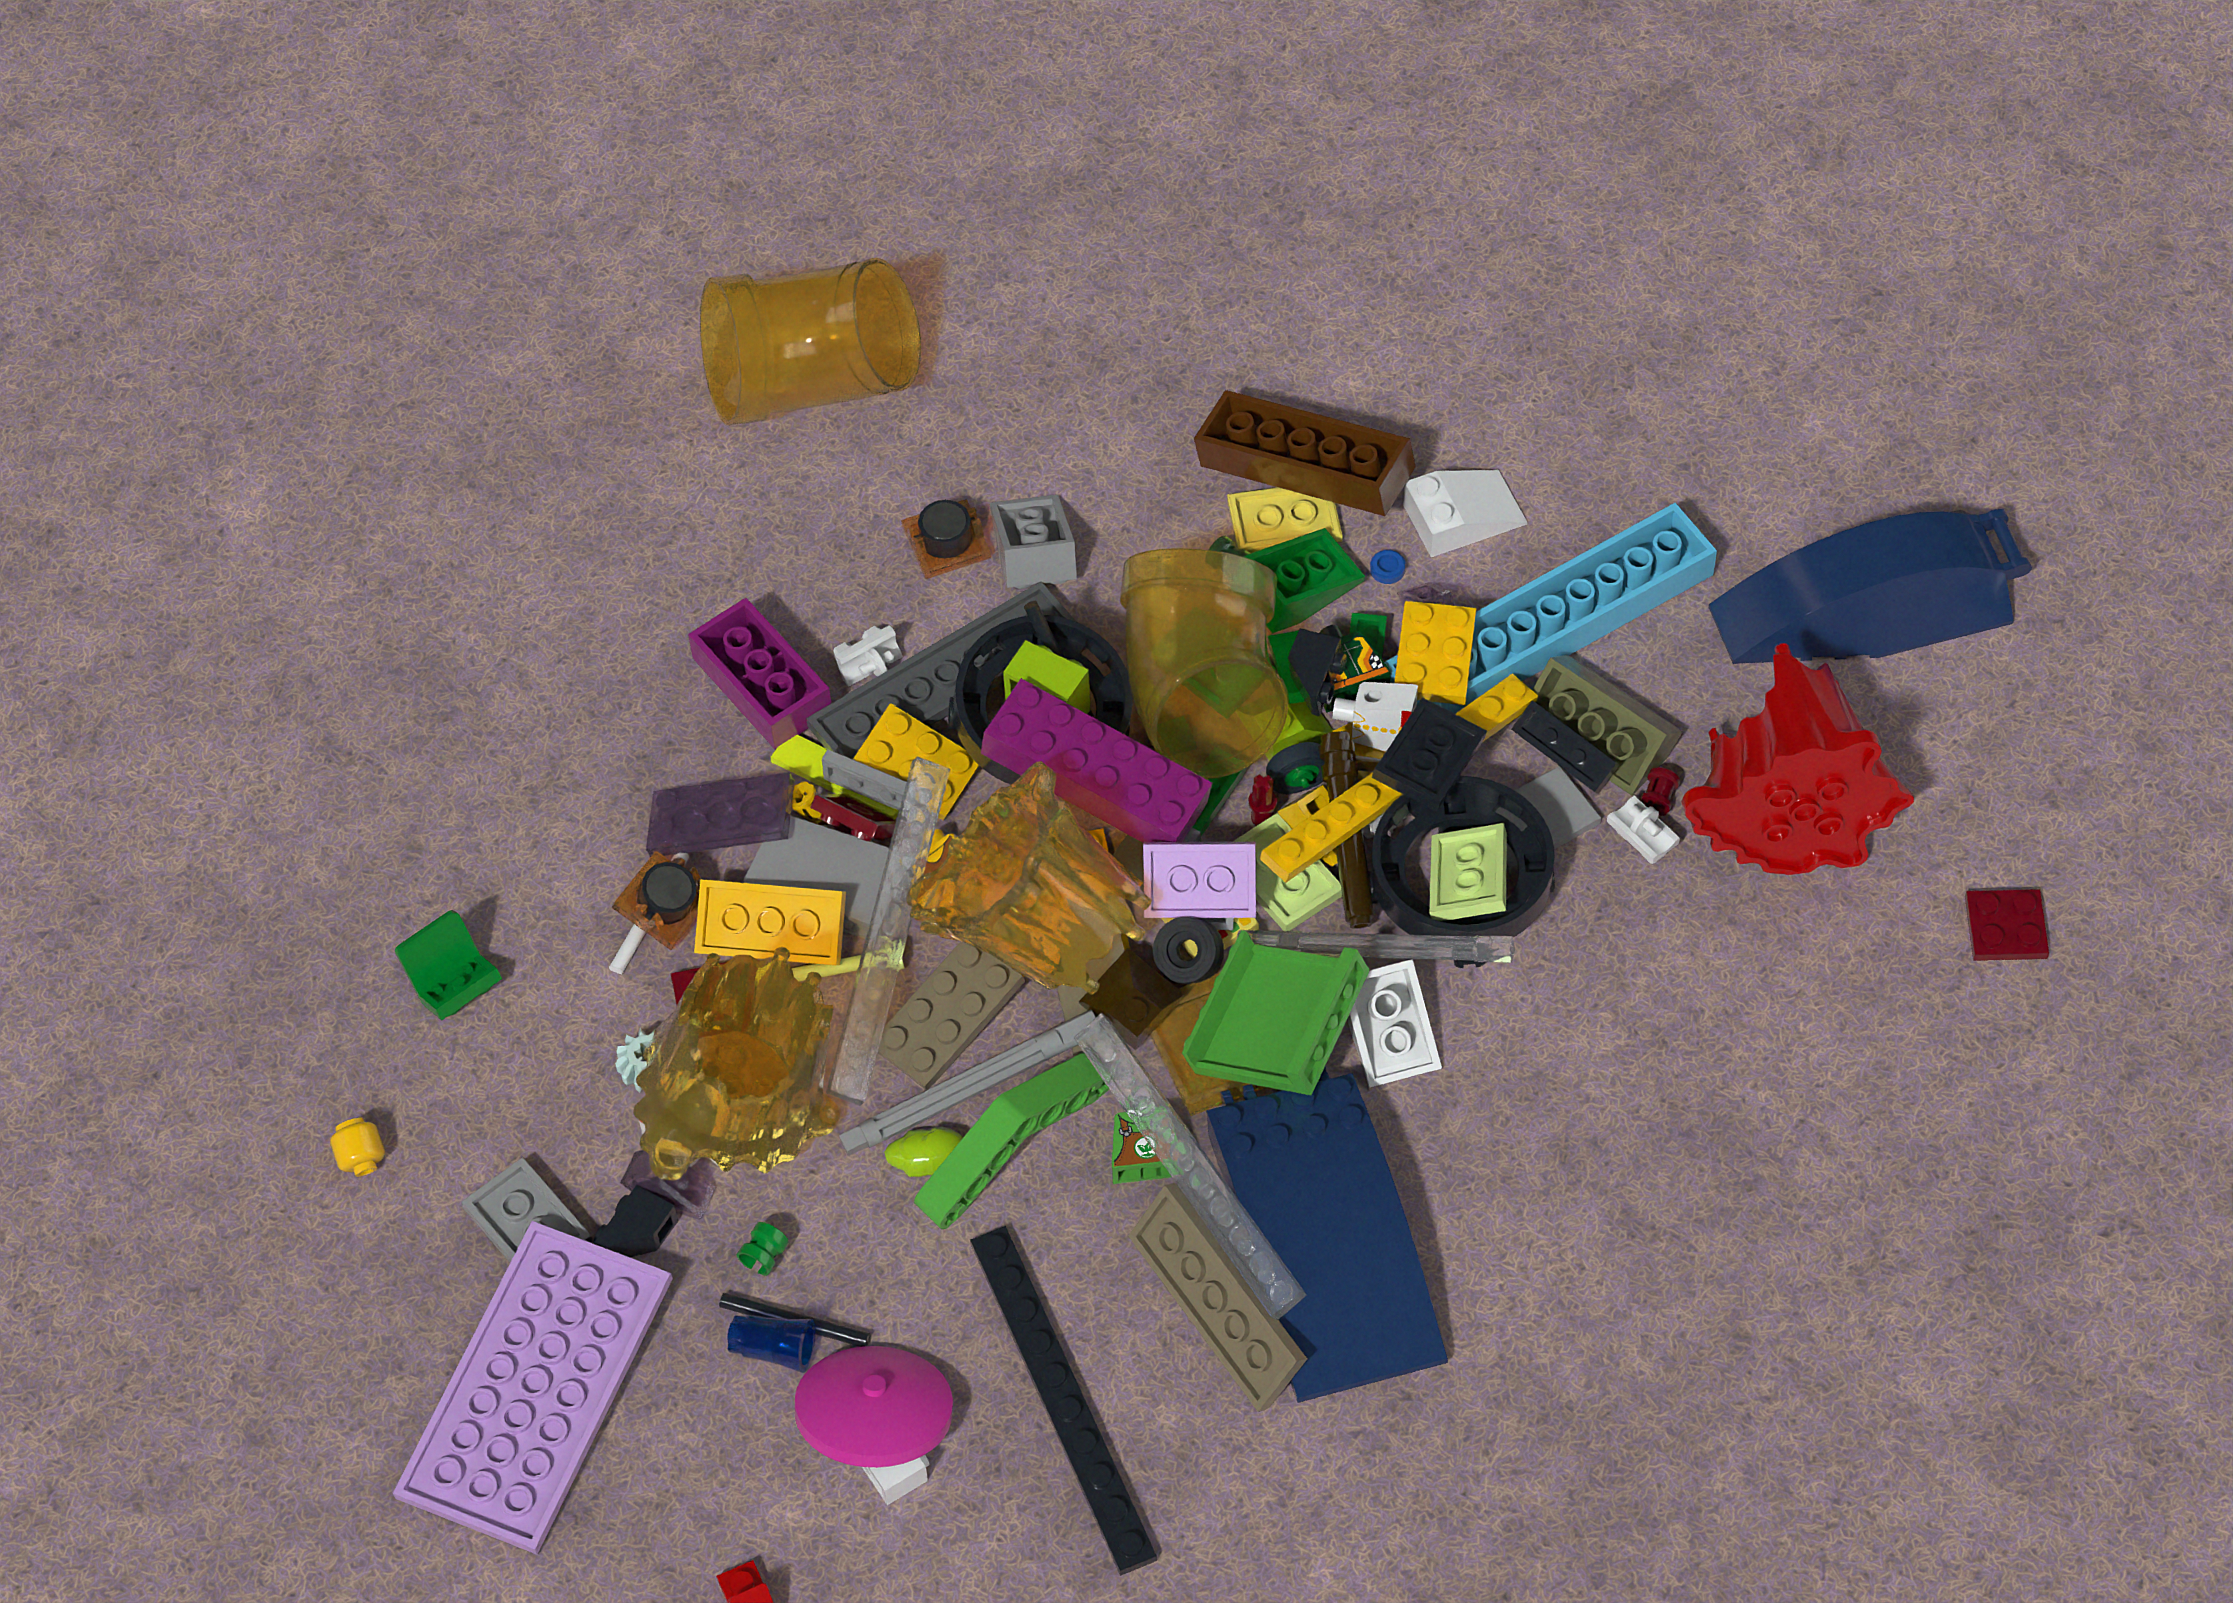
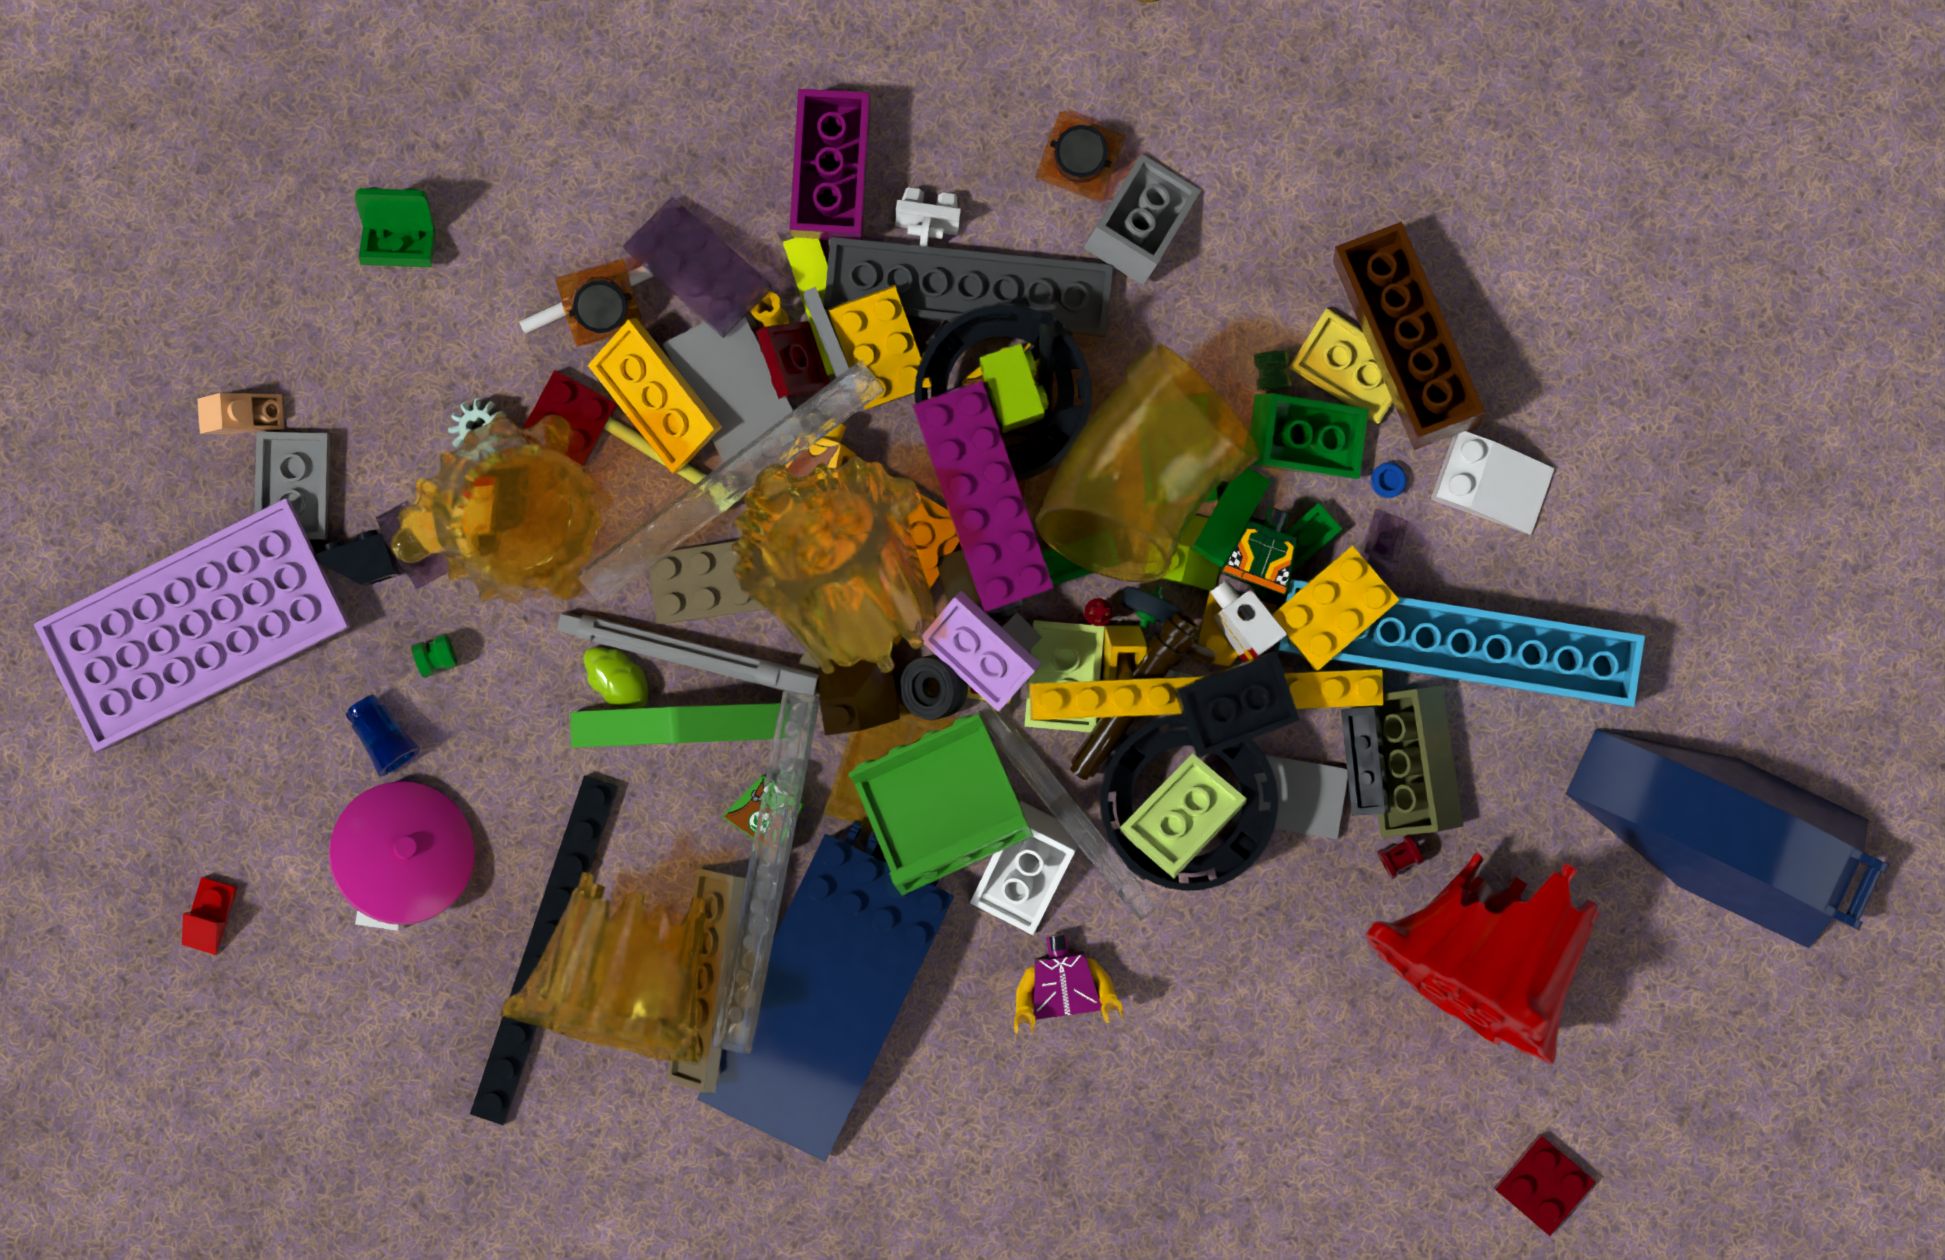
camera: 40 degrees right, 30 degrees up
(357, 1146) = (220, 320): yellow head -> none
(431, 1200) = (240, 413): none -> light nougat slope
(823, 1328) = (414, 727): black bar -> none
(1152, 1335) = (620, 978): none -> clear yellow piece
(1314, 666) = (1226, 546): black slope -> none
(1505, 1075) = (1063, 986): none -> torso
(1643, 829) = (1354, 881): white hips -> none

